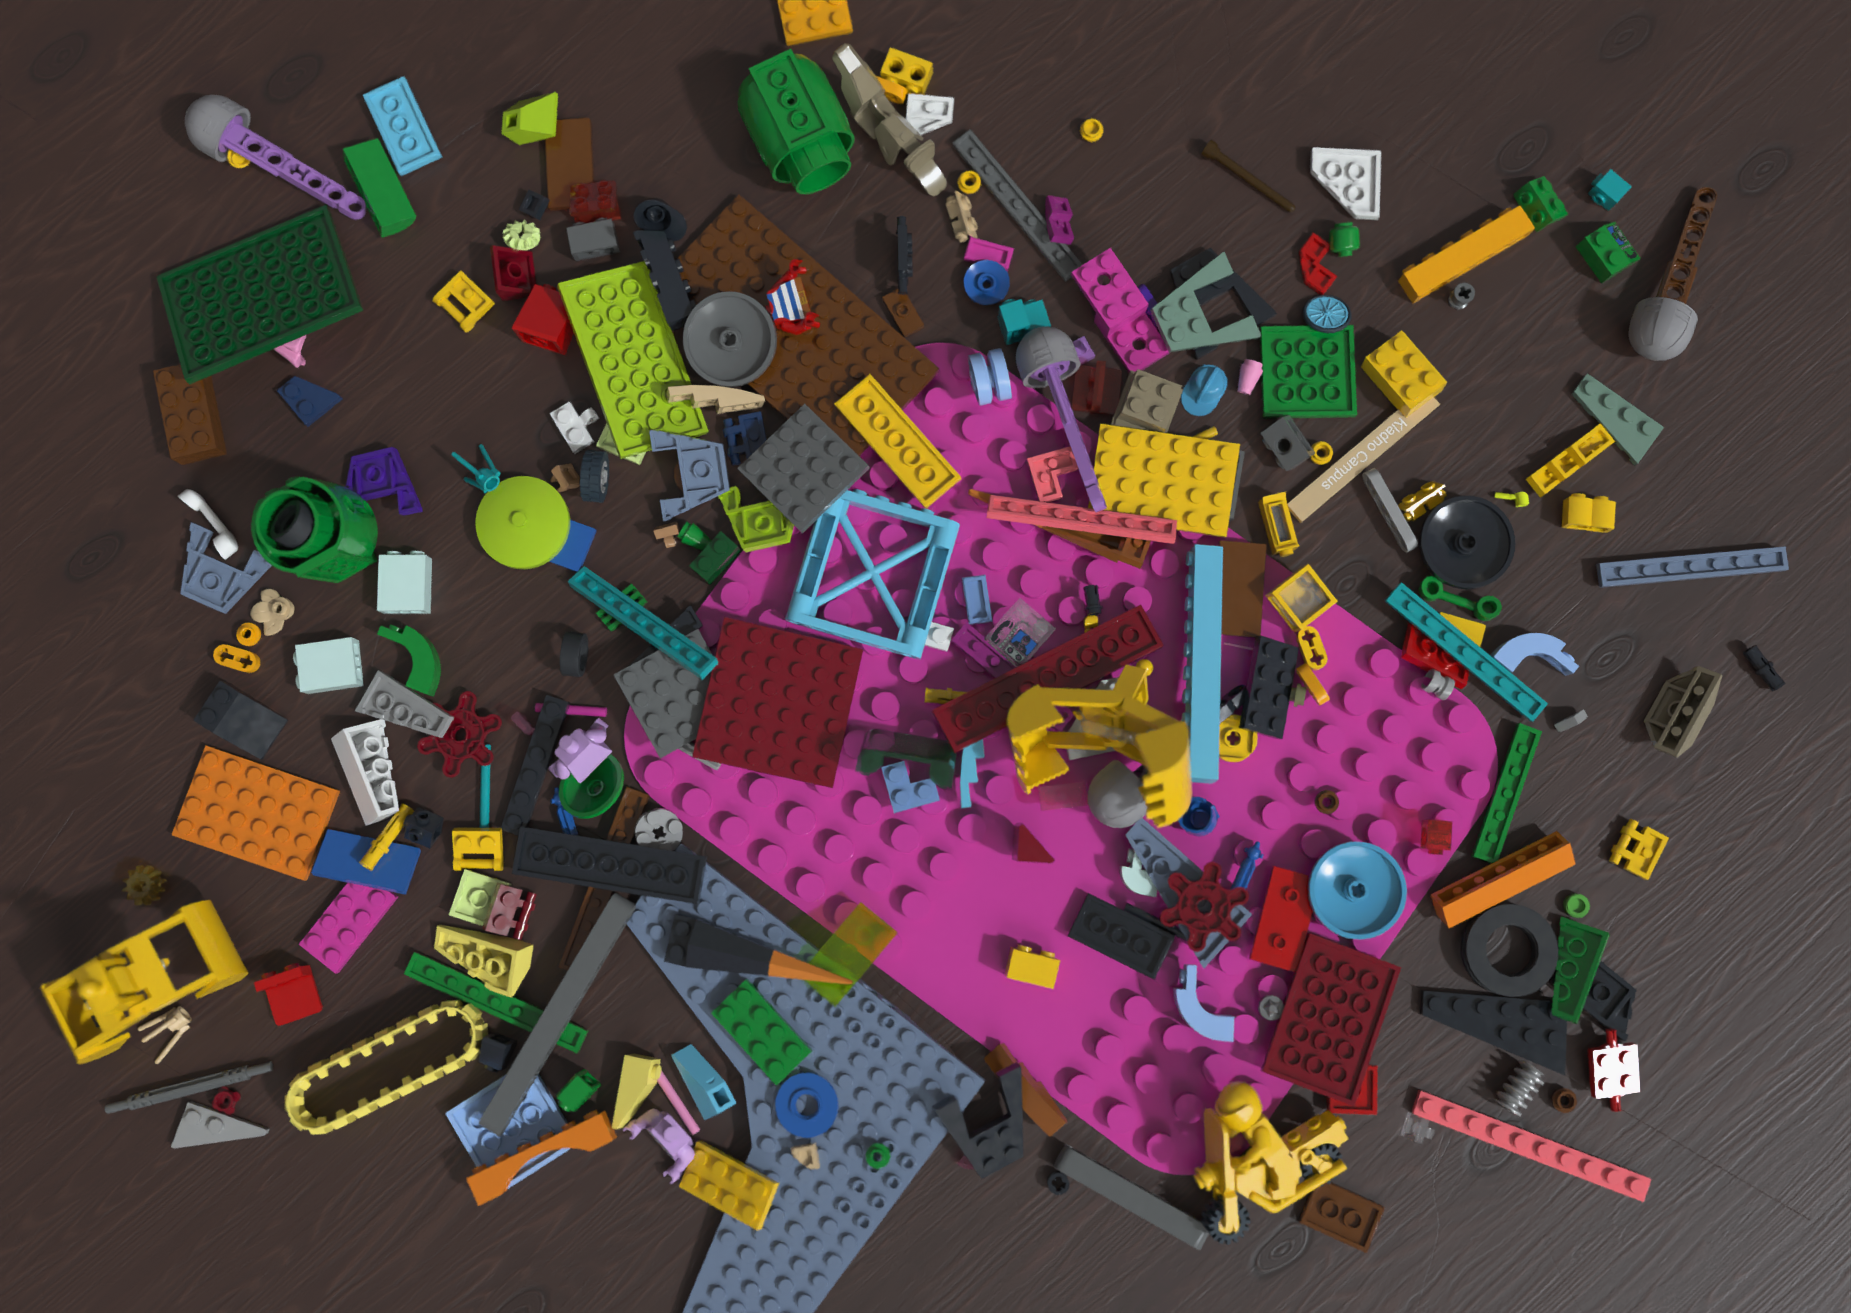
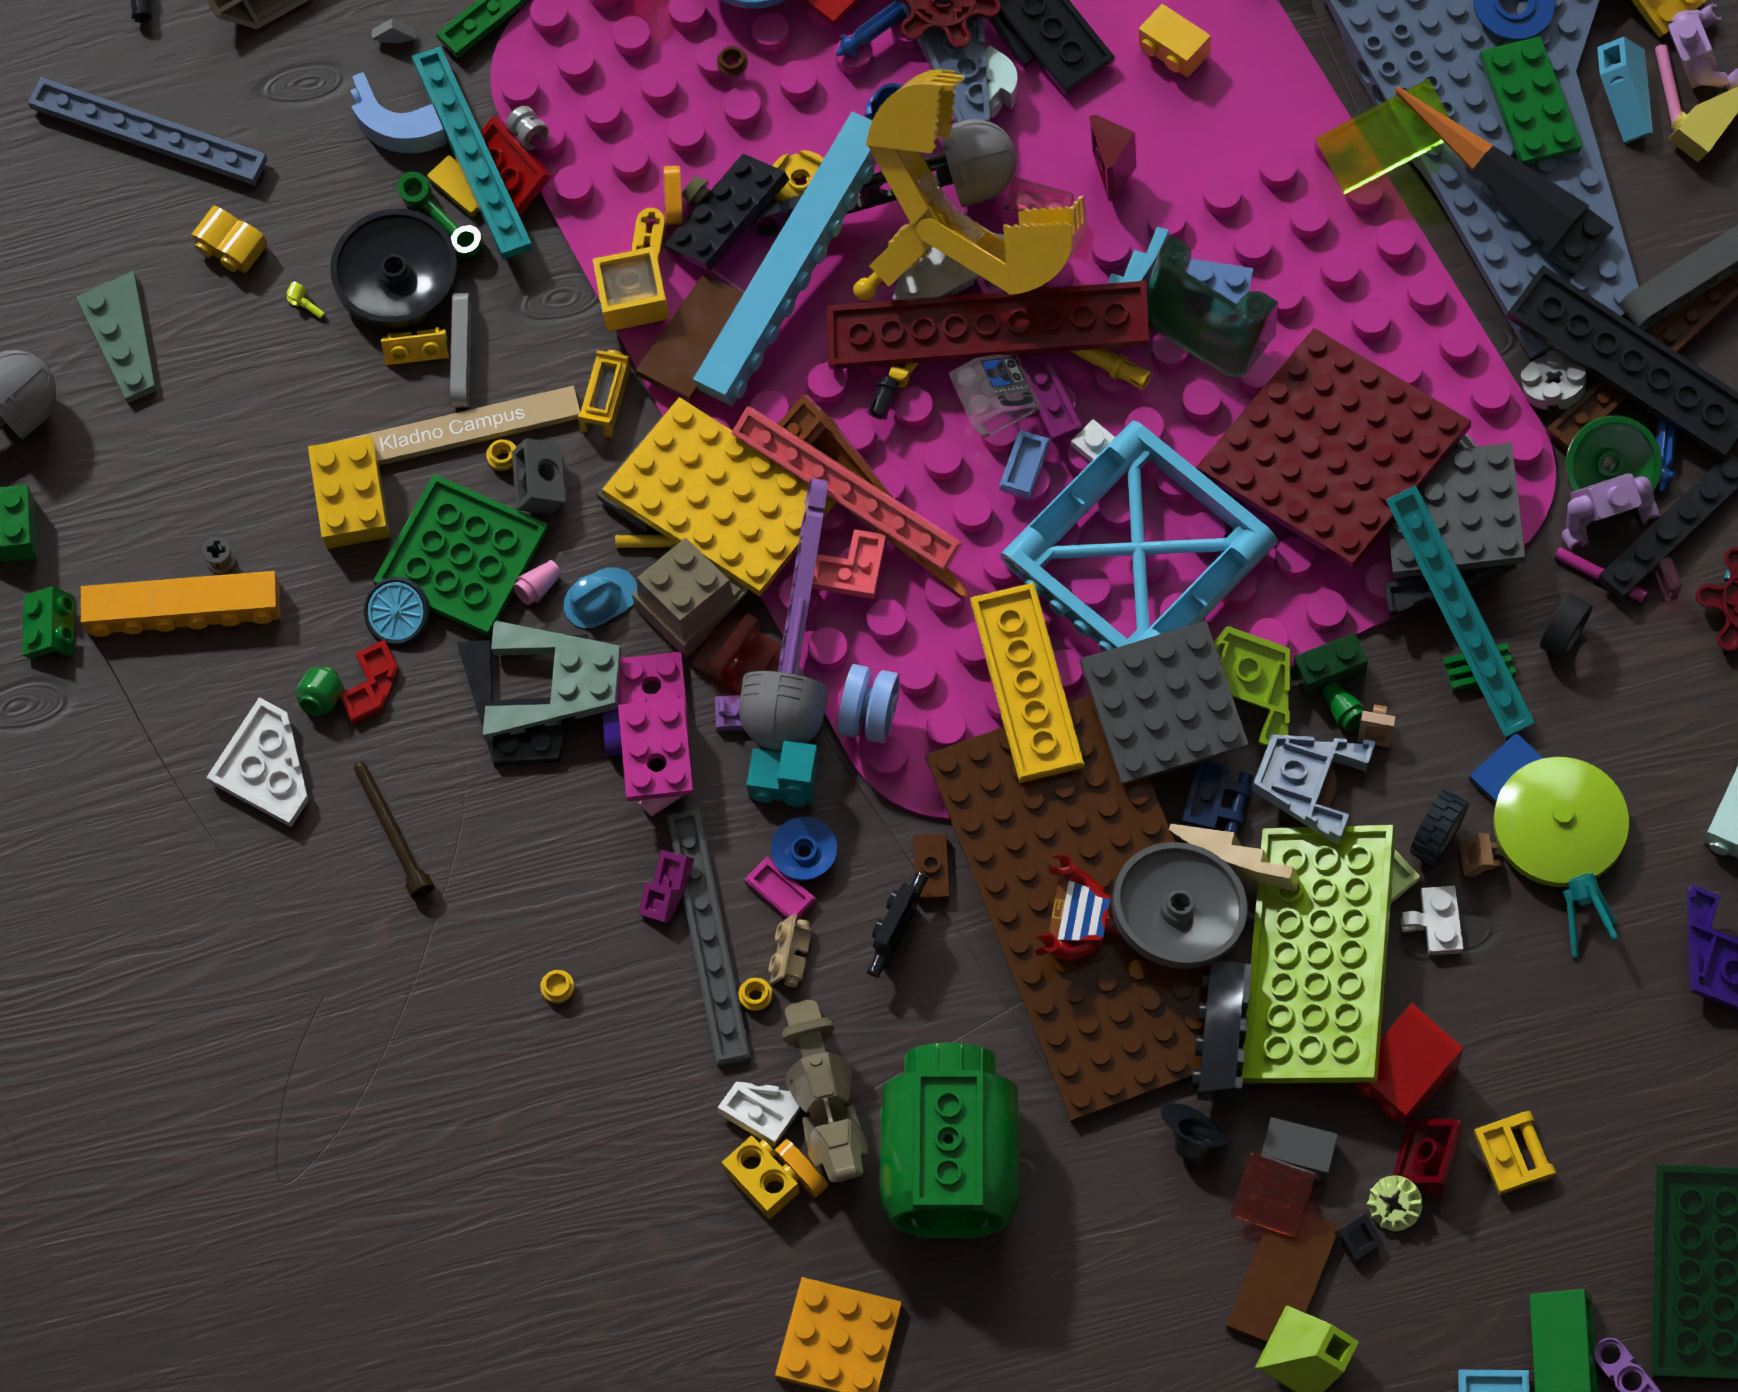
camera: 150 degrees left, 15 degrees down
(1570, 460) = (209, 311): yellow slope -> none

